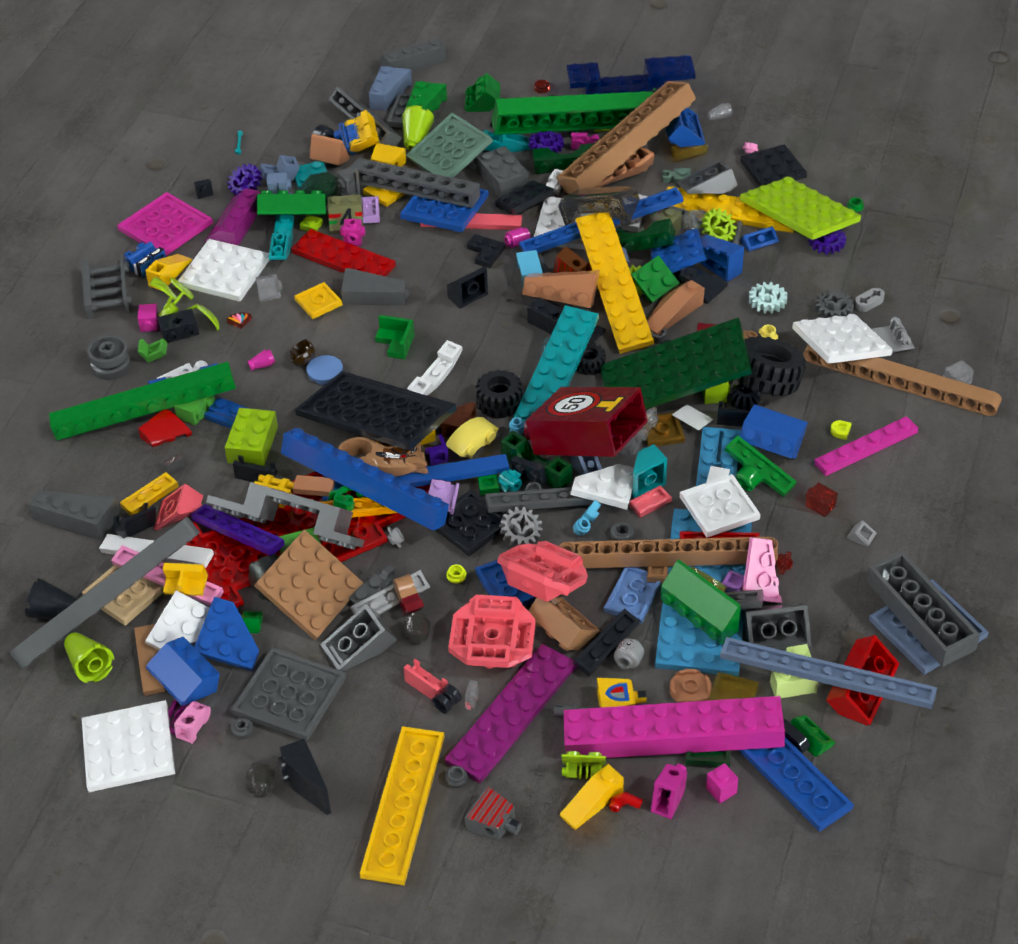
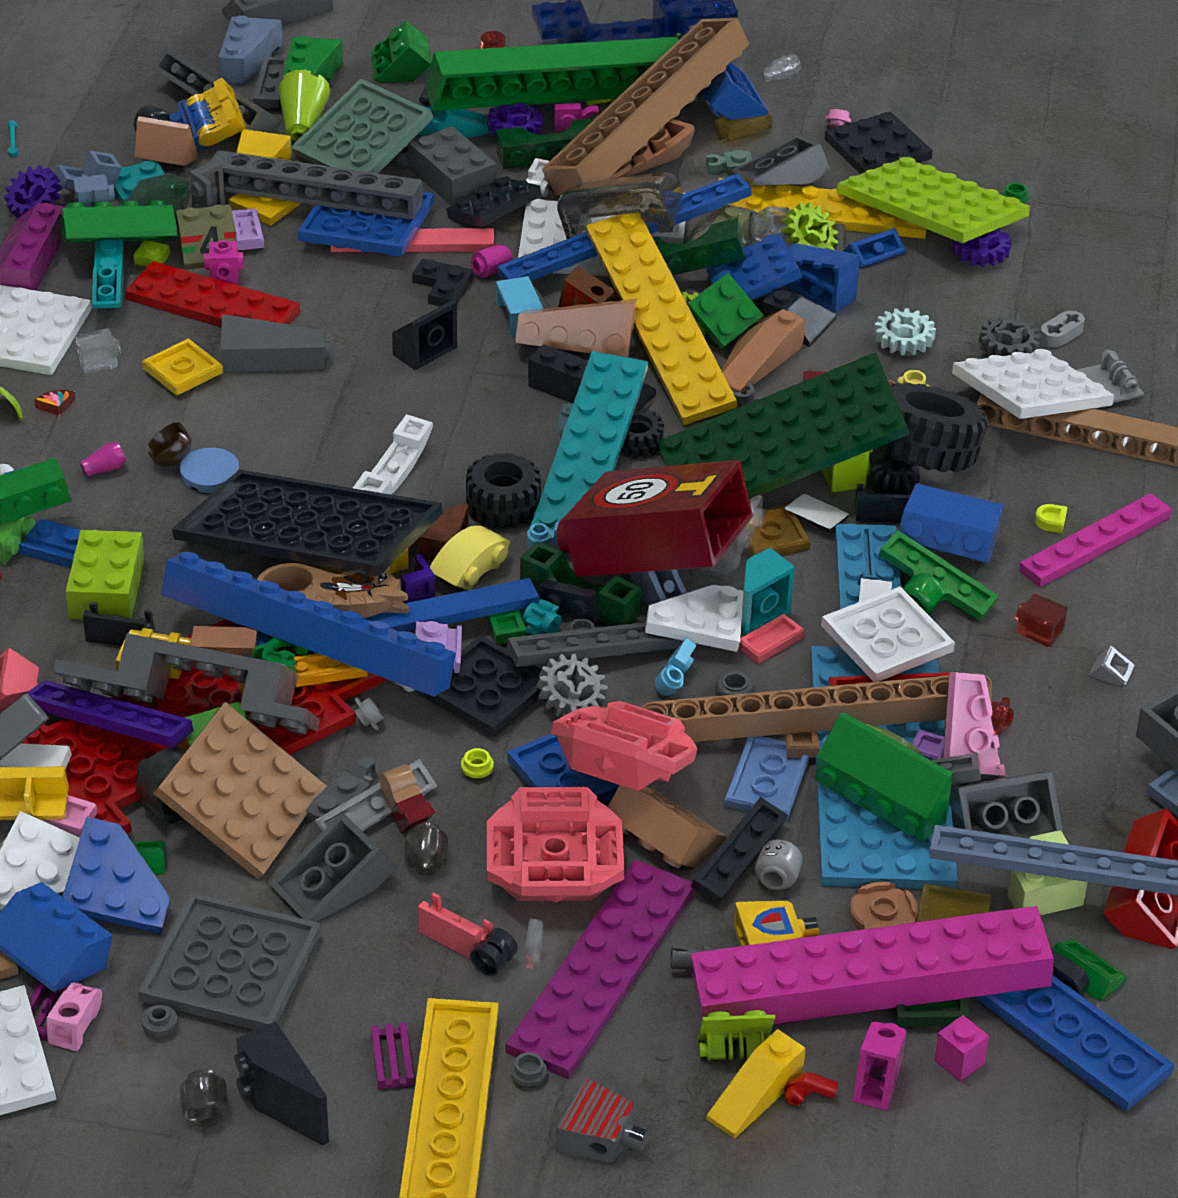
camera: 10 degrees left, 5 degrees down
(376, 746) = (389, 1034): none -> magenta tile
(397, 333) = (319, 408): green panel -> none

